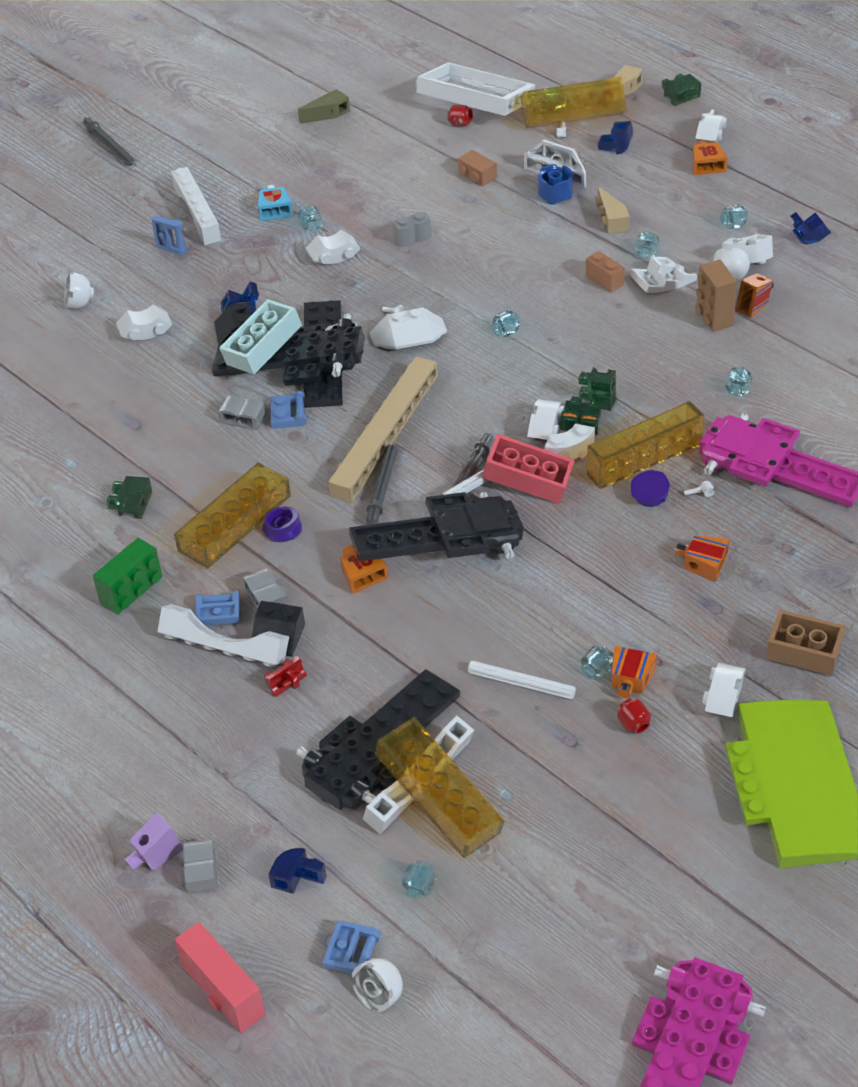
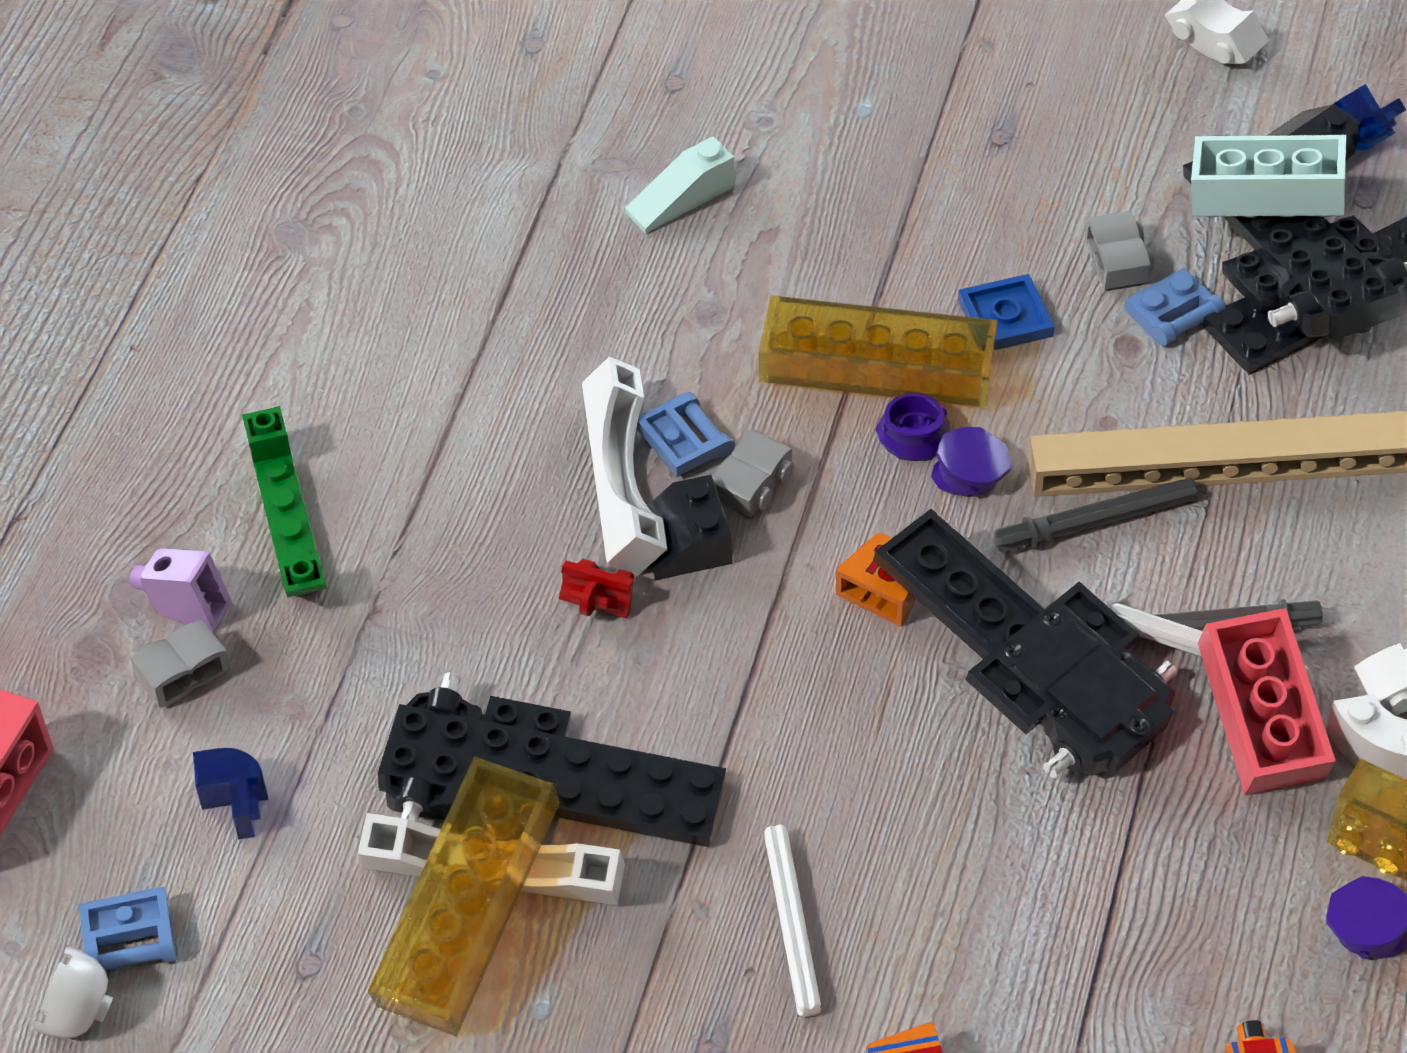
camera: 60 degrees right, 5 degrees up
(63, 546) = (684, 185): none -> light aqua slope
(127, 576) = (660, 287): green brick -> none
(132, 496) = (837, 210): clear green hips -> none
(135, 788) = (283, 502): none -> green slope
(238, 462) = (1015, 306): none -> blue tile
(320, 513) = (970, 462): none -> dark purple hat
(419, 879) = (294, 960): clear light blue head -> none
(597, 662) = (889, 1011): clear light blue head -> none

